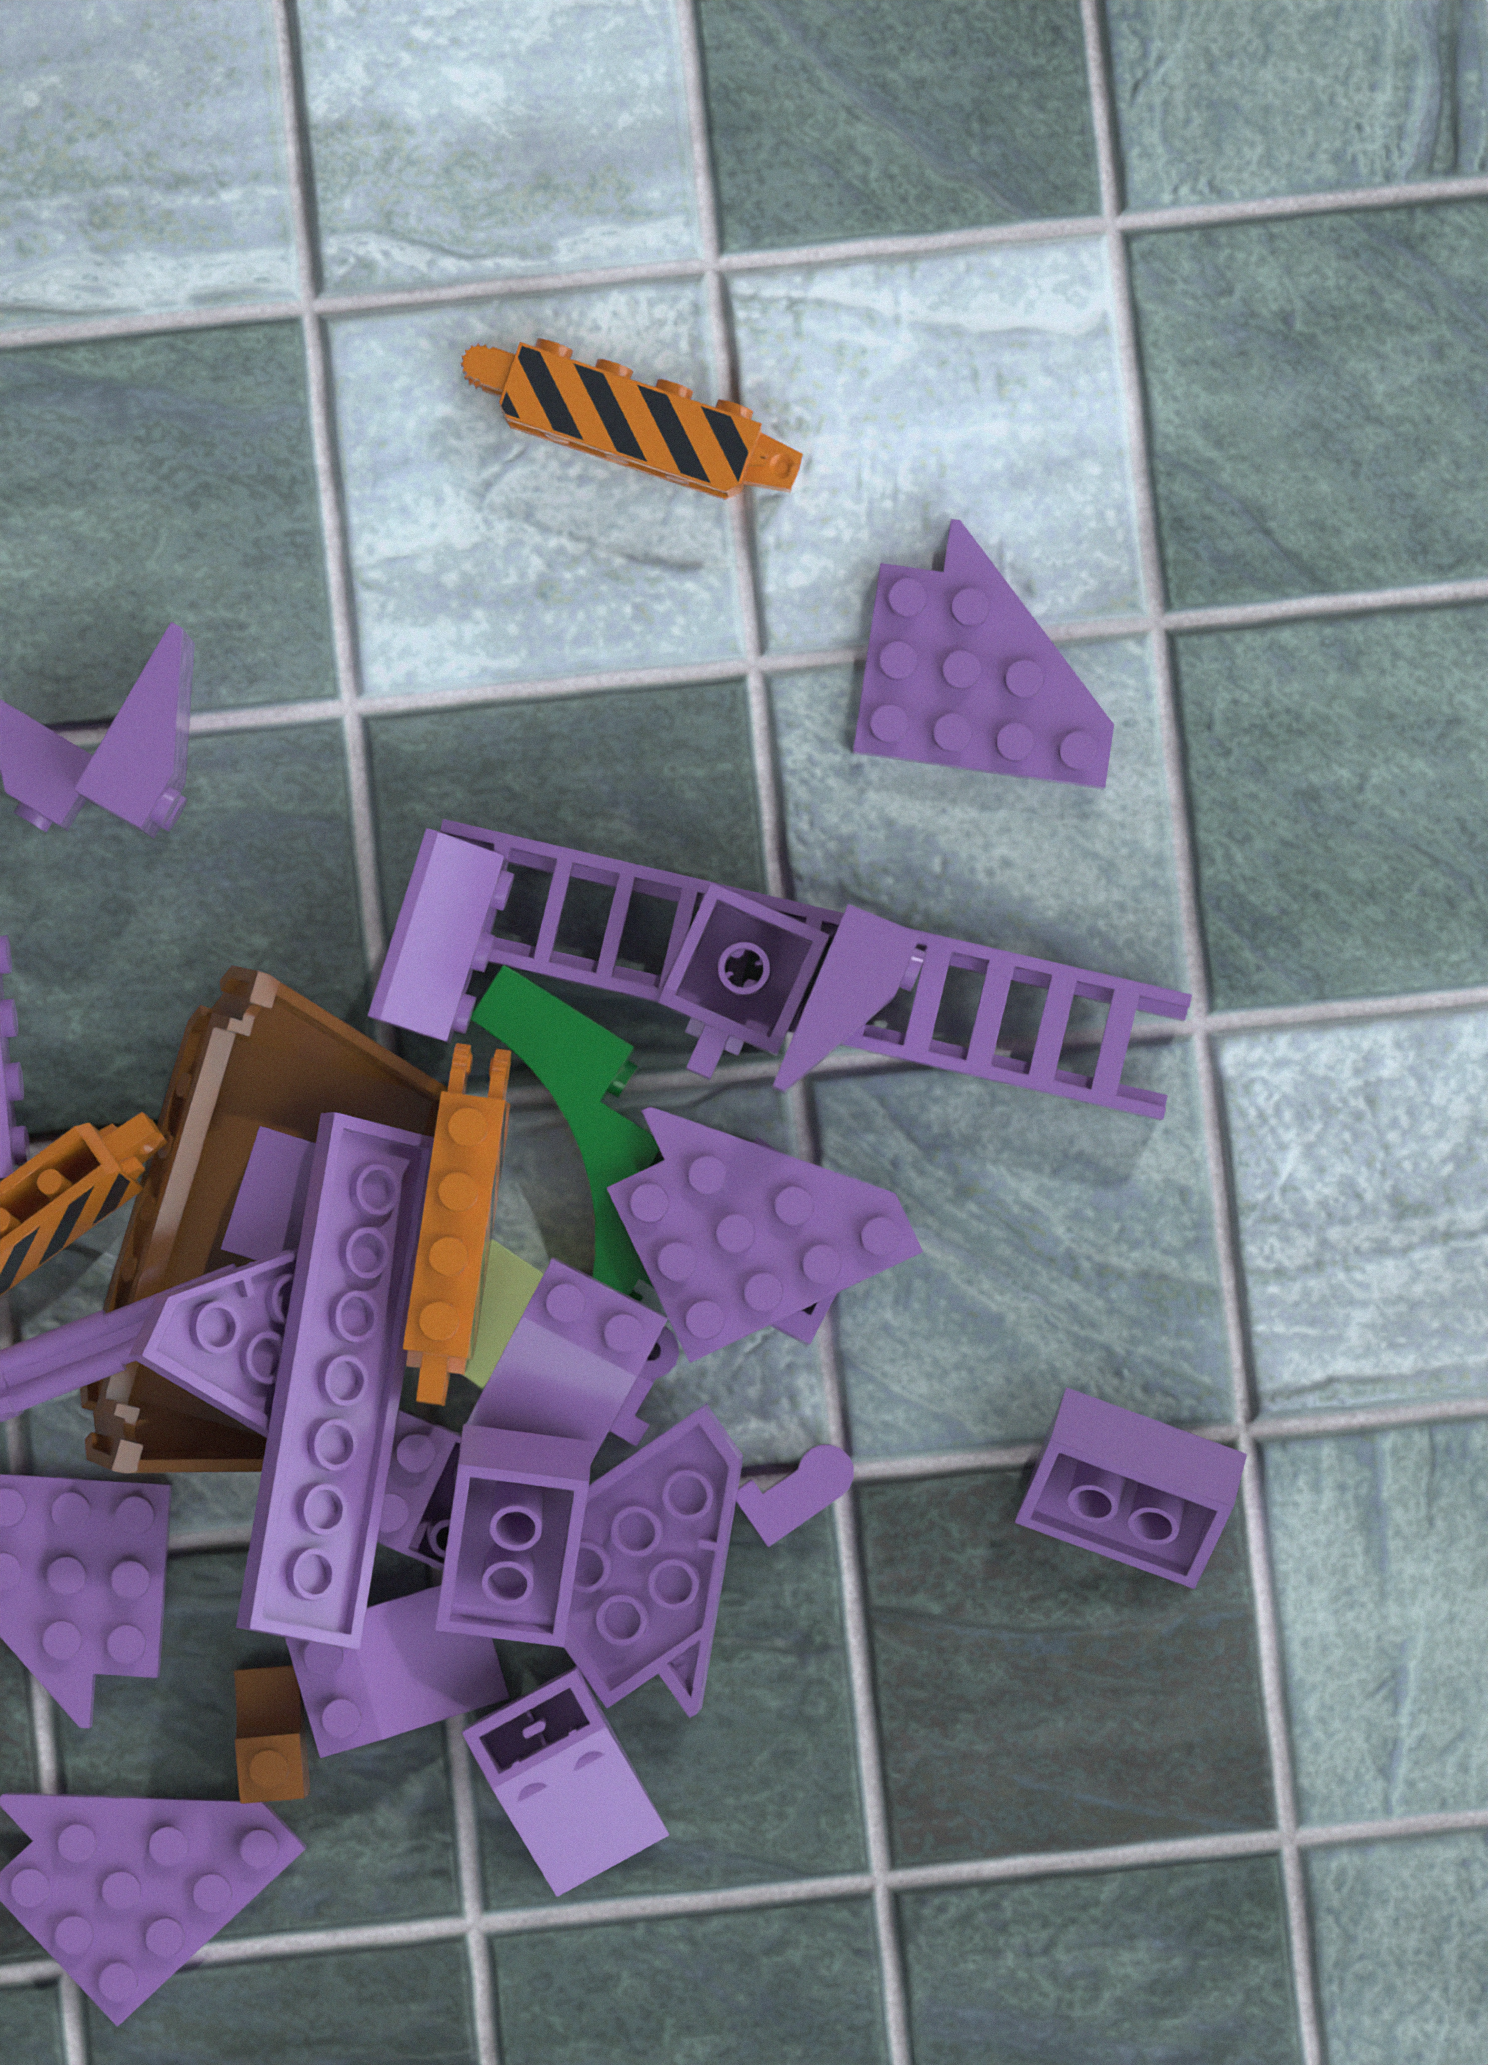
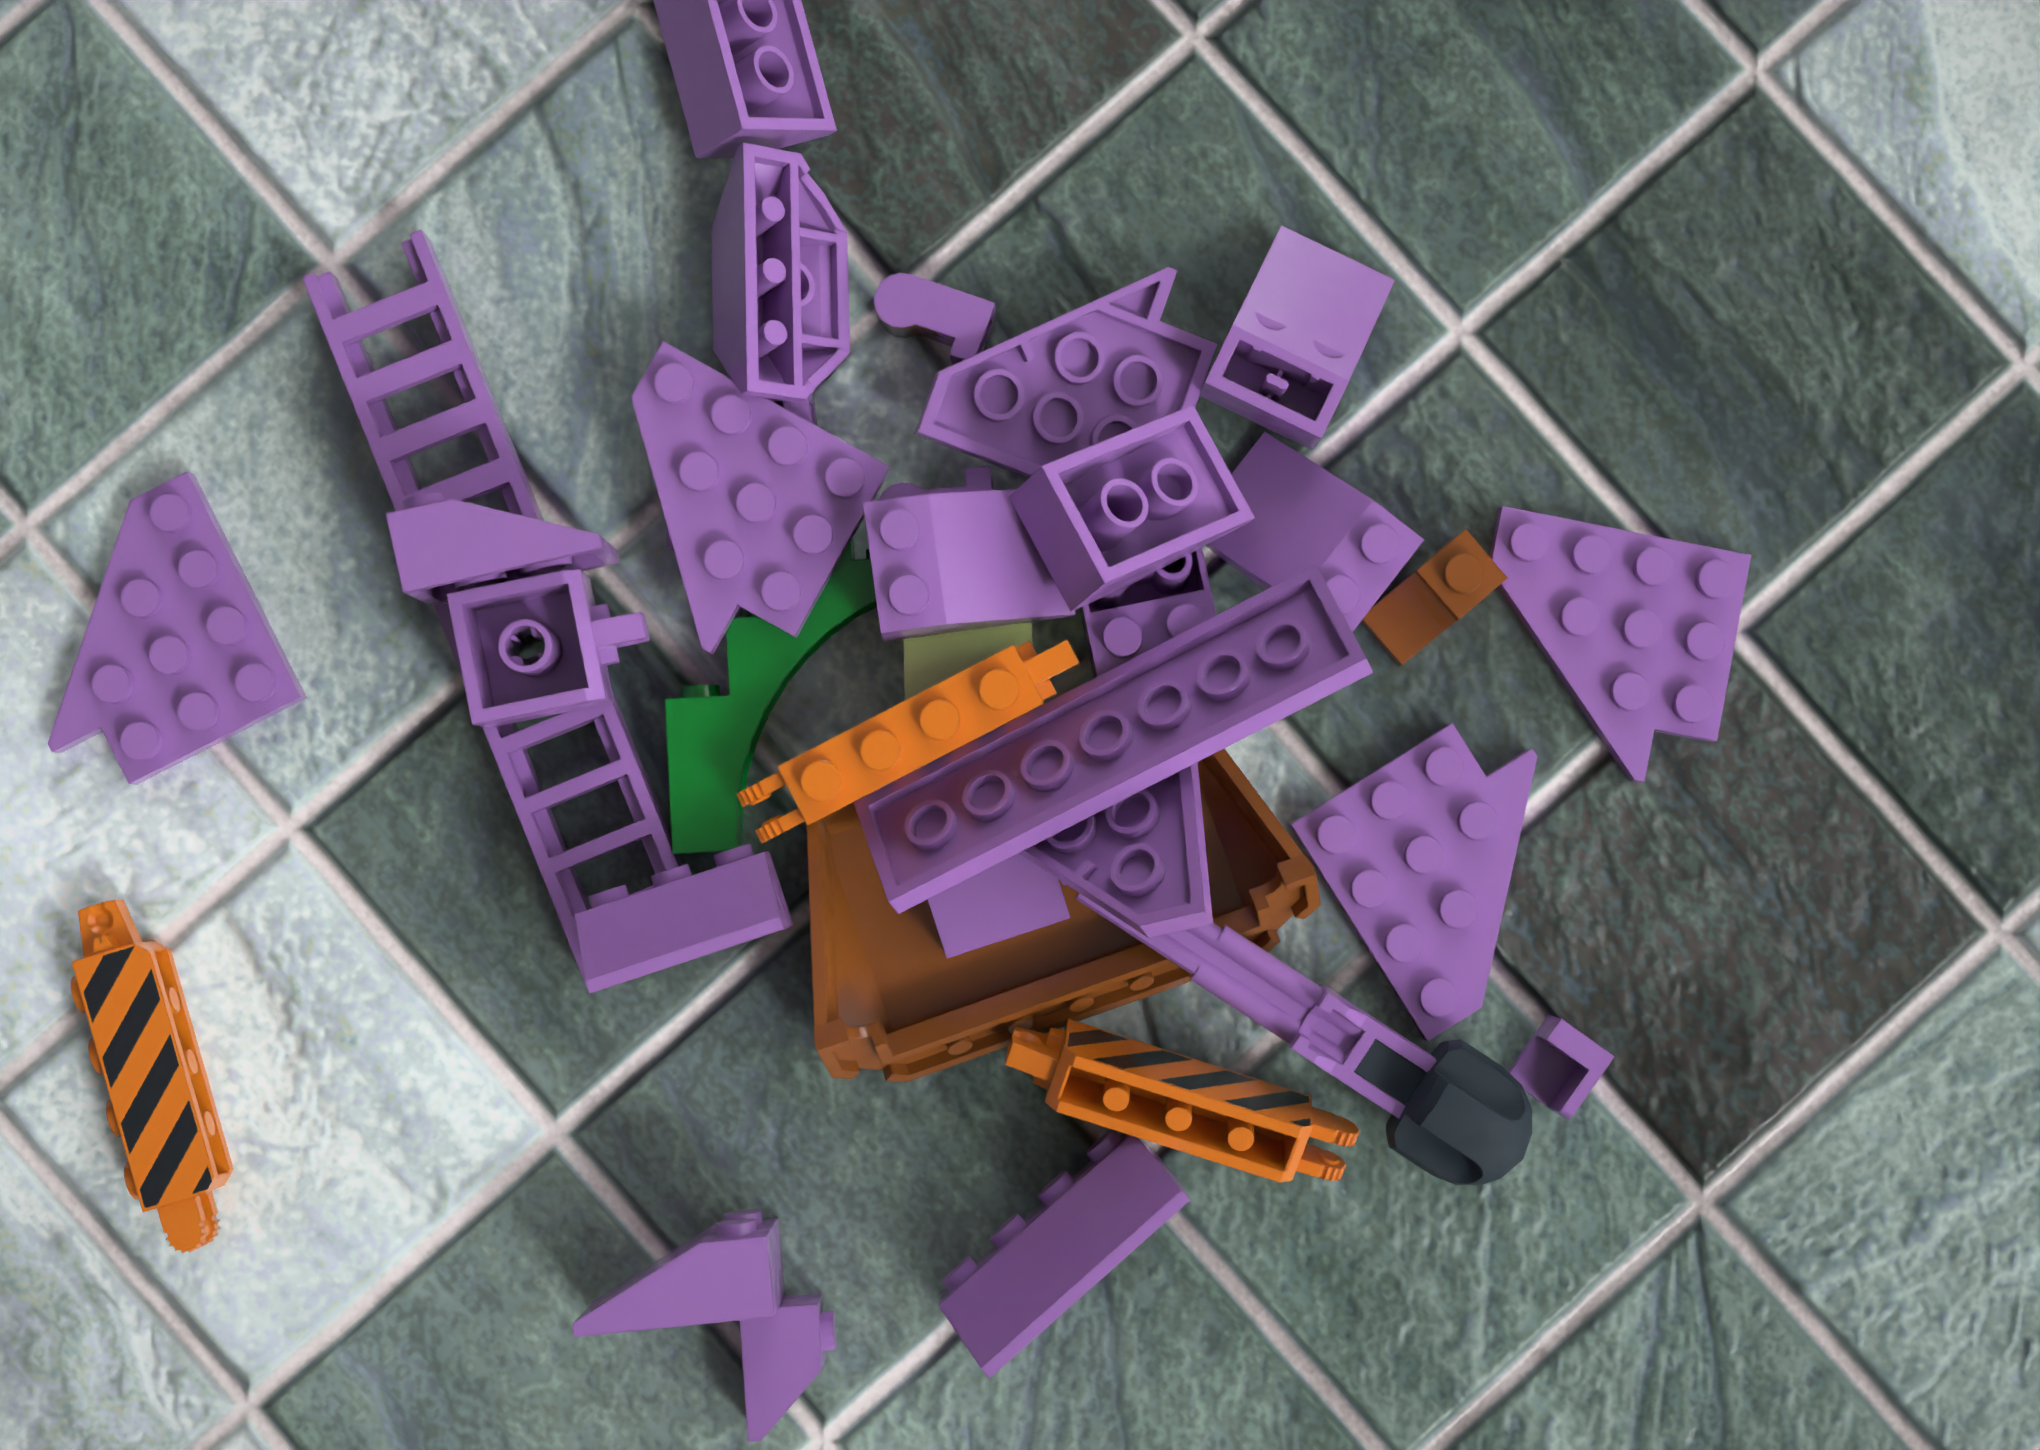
camera: 130 degrees left, 0 degrees up
(914, 1382) = (778, 277): none -> medium lavender wedge

